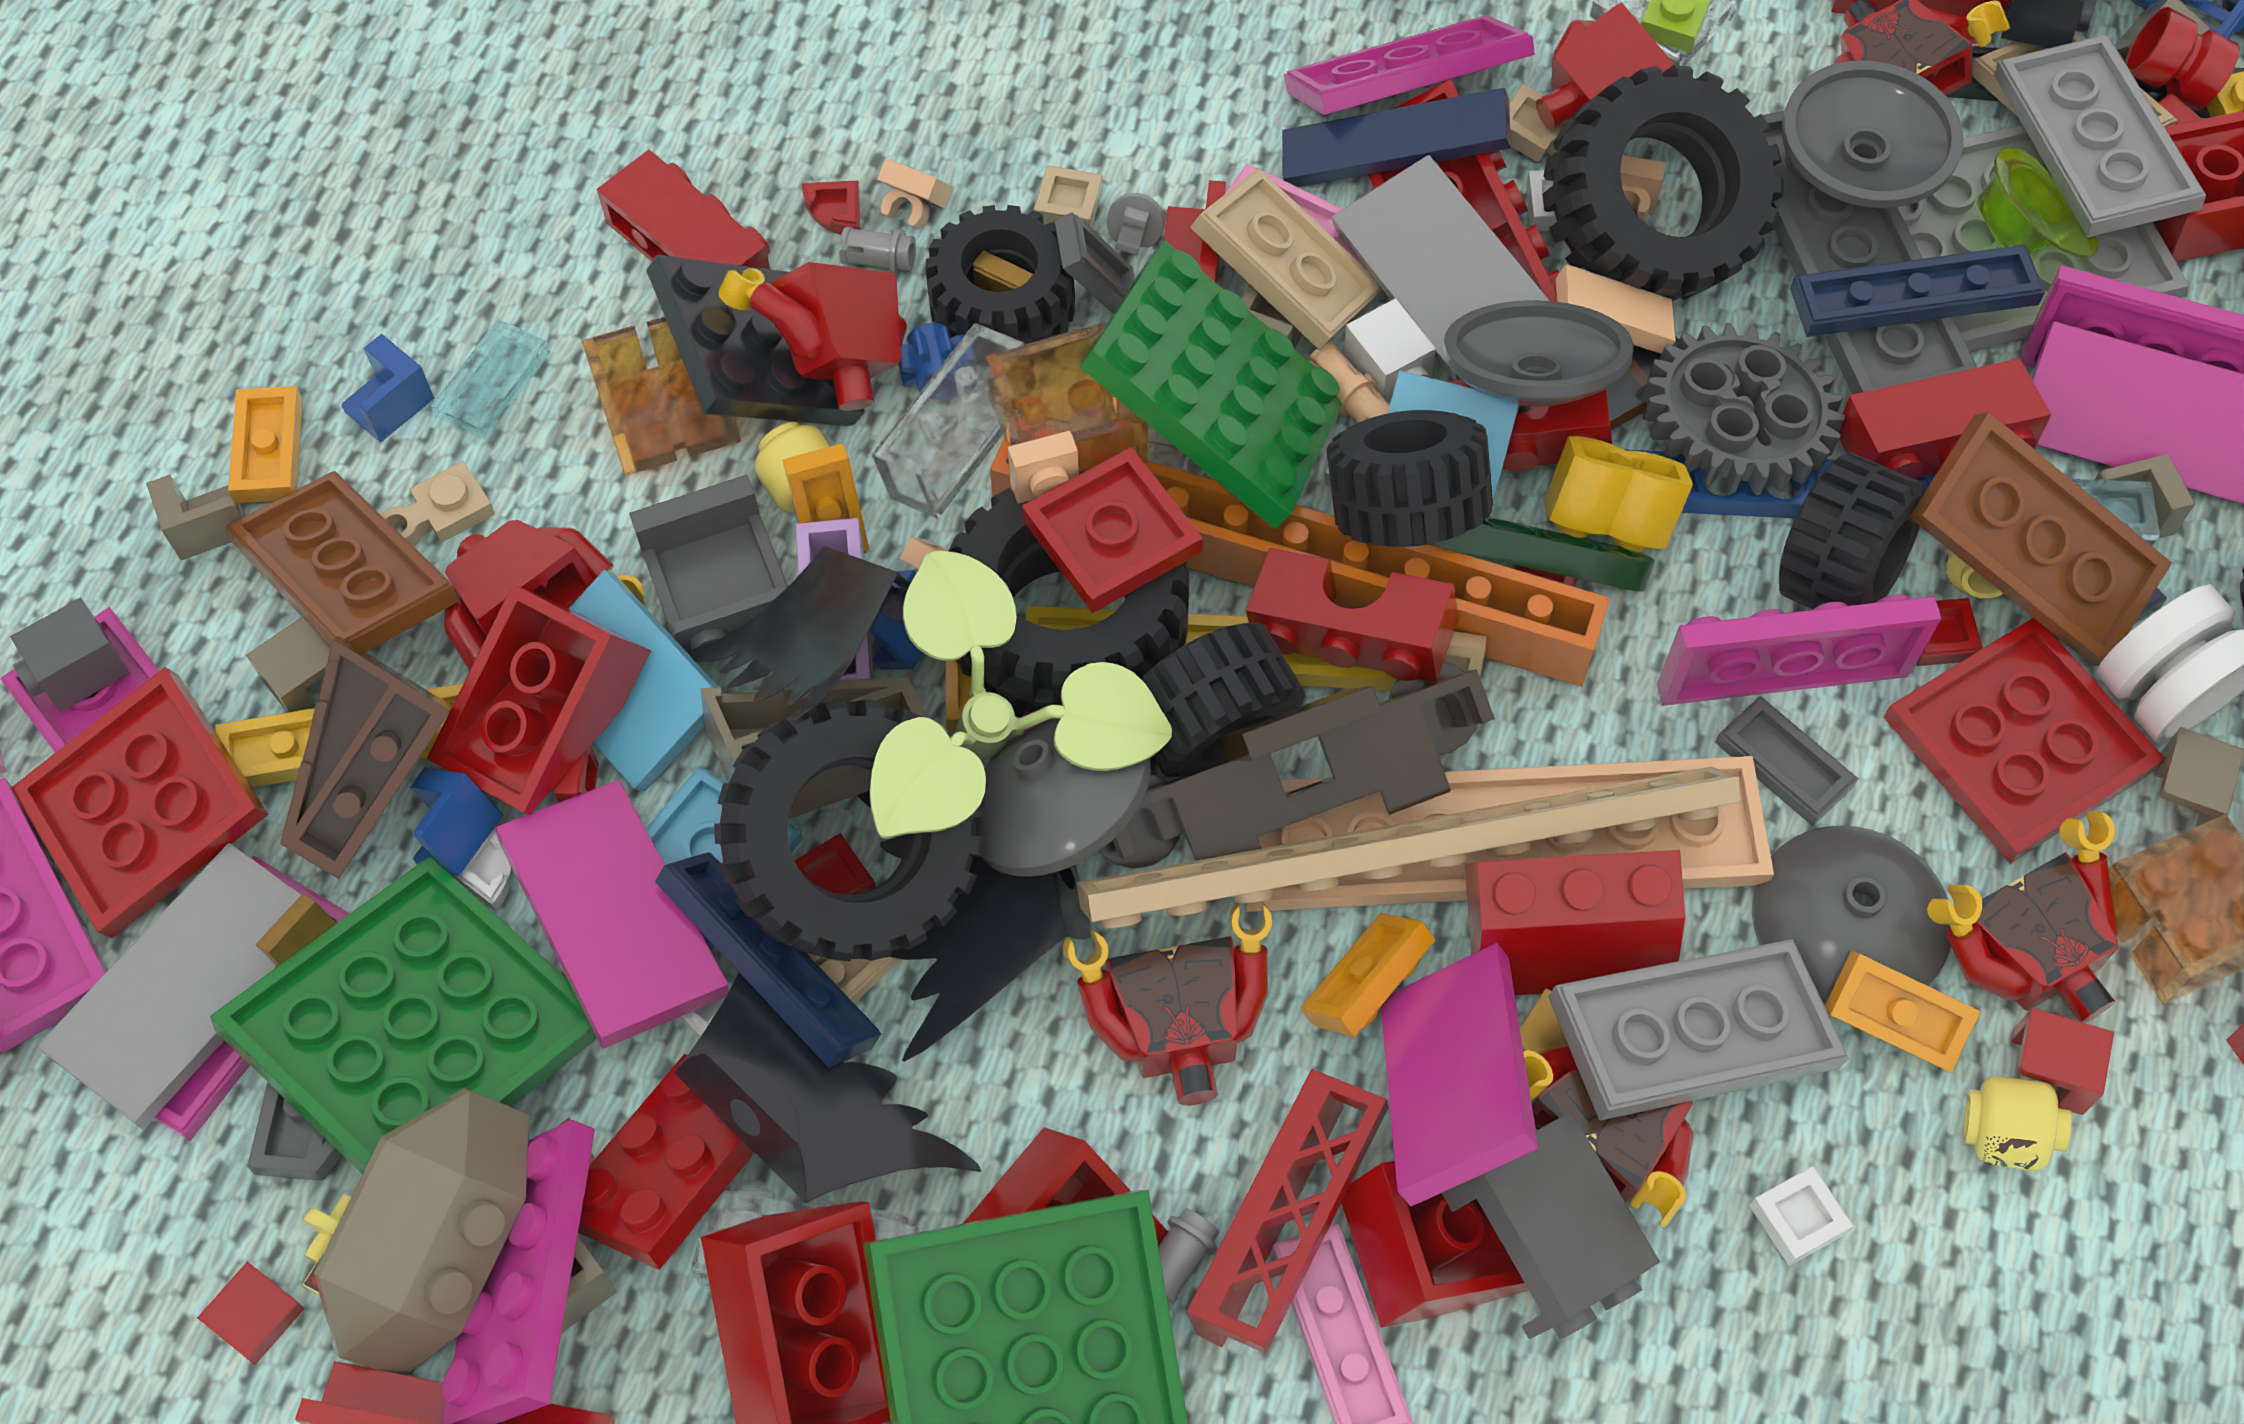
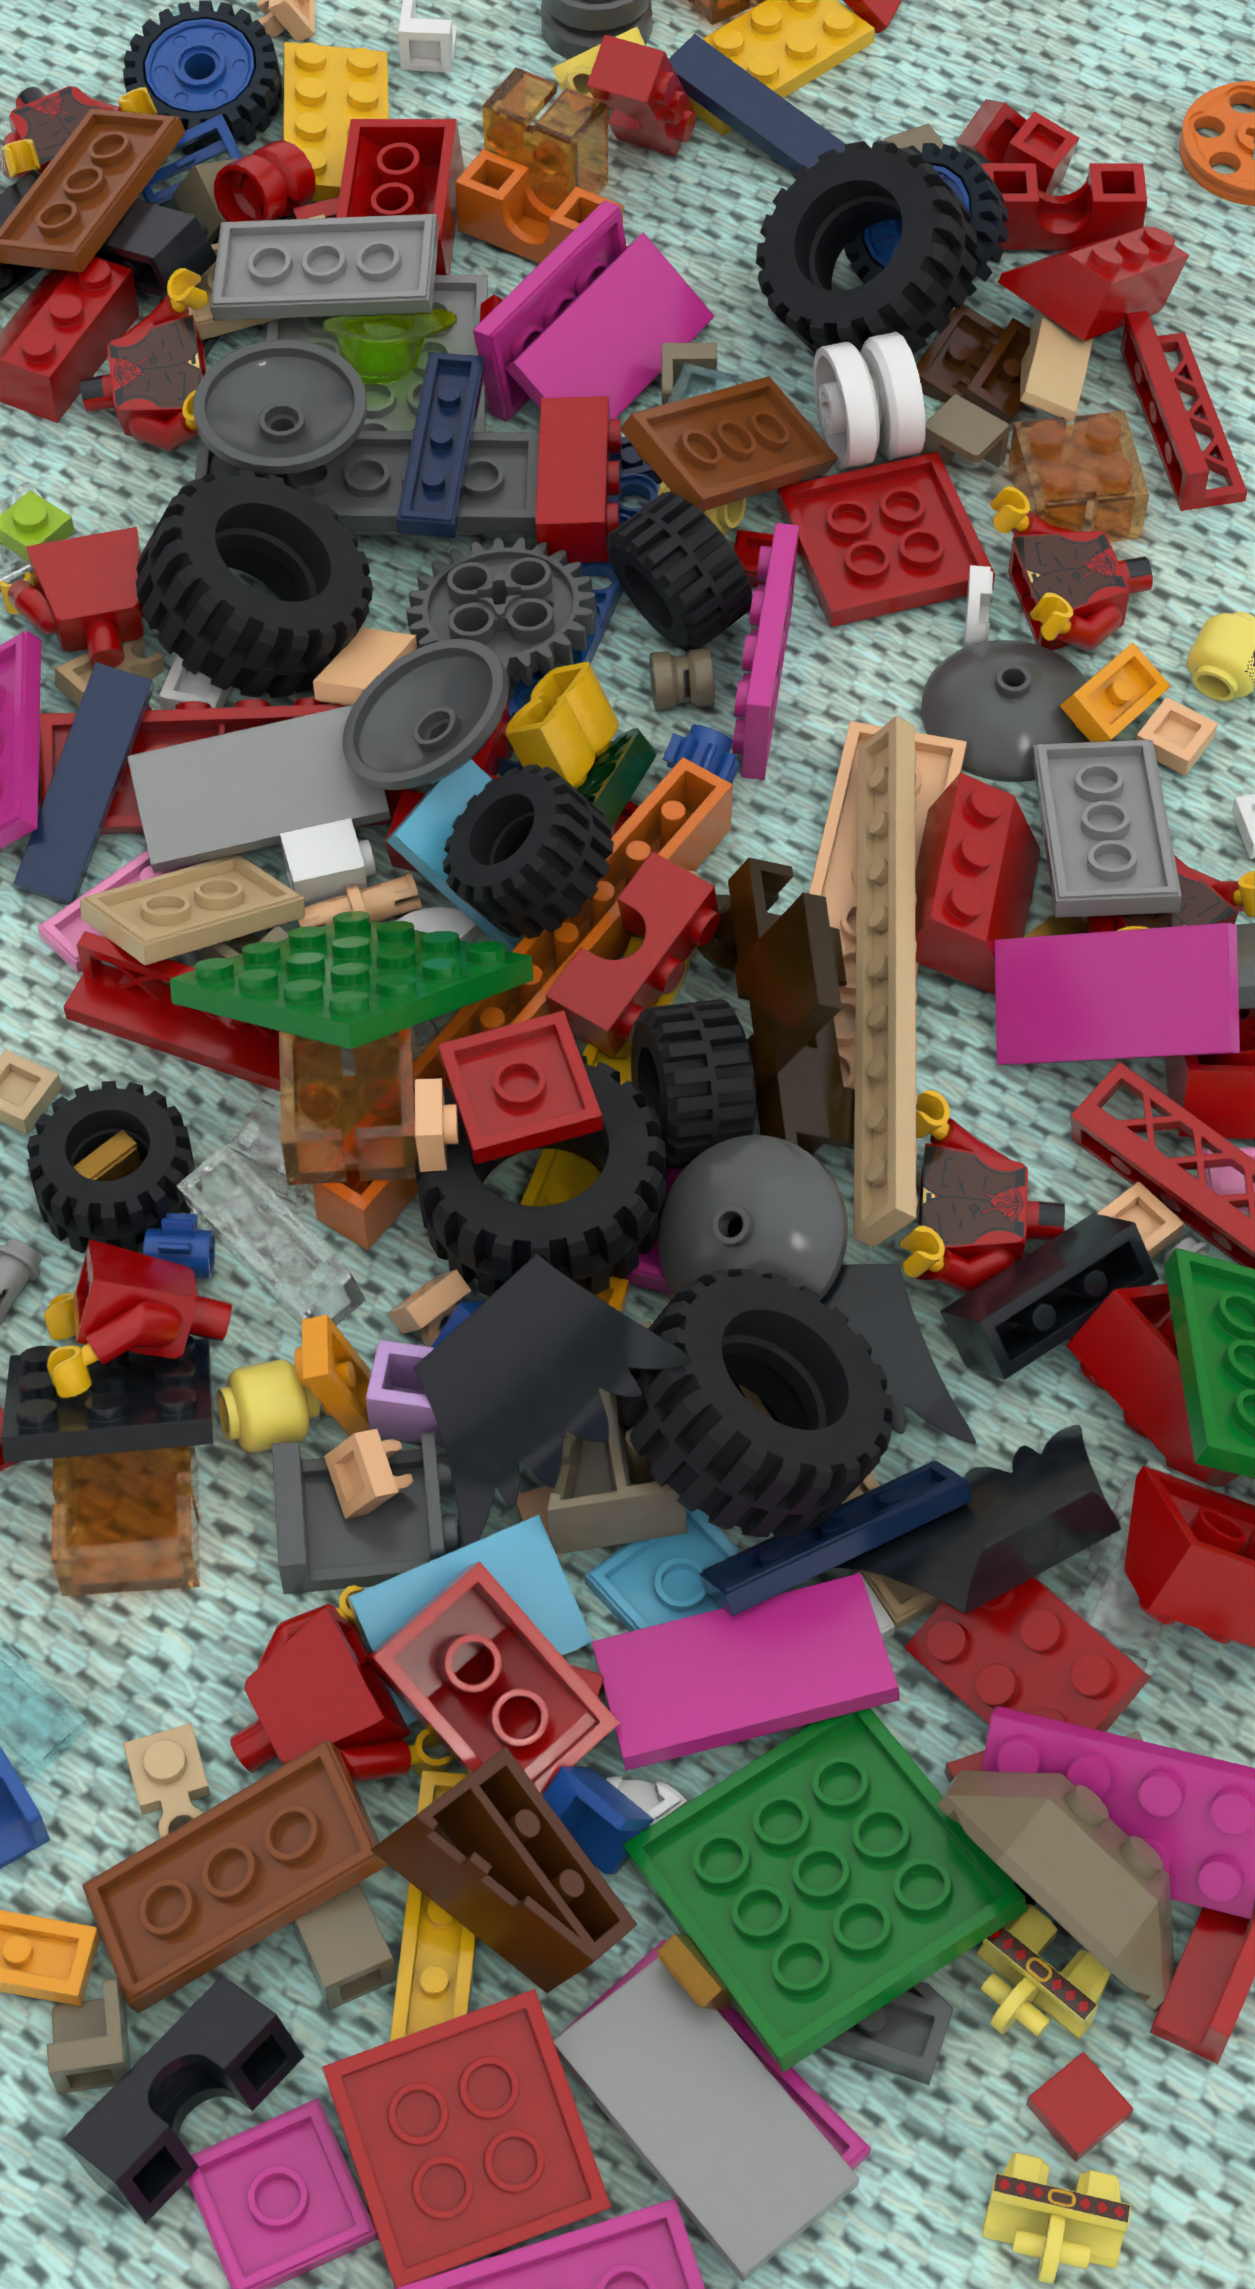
camera: 75 degrees left, 5 degrees down
(67, 656) = (256, 2189): dark grey brick -> none
(131, 1341) = (1055, 2221): none -> light yellow hips
(191, 602) = (216, 2049): none -> black arch
(741, 556) = (363, 1472): none -> light nougat tile
(937, 781) = (759, 1287): yellowish green plant -> none
(1093, 261) = (136, 1069): dark grey tile -> none
(1095, 1095) = (1047, 1295): none -> black brick
(1135, 222) = (72, 1040): light grey plate -> none
(1217, 1174) = (1154, 1221): none -> light nougat plate
(1368, 974) = (977, 1061): light orange plate -> none
(1640, 631) = (706, 749): none -> blue gear
(1740, 585) = (668, 679): none -> dark tan wheel
(1787, 760) = (864, 697): dark grey tile -> none
(1880, 1090) = (1178, 735): none -> light nougat plate
(1969, 849) = (977, 604): none -> white tile
(2066, 1056) = (1183, 601): red panel -> none

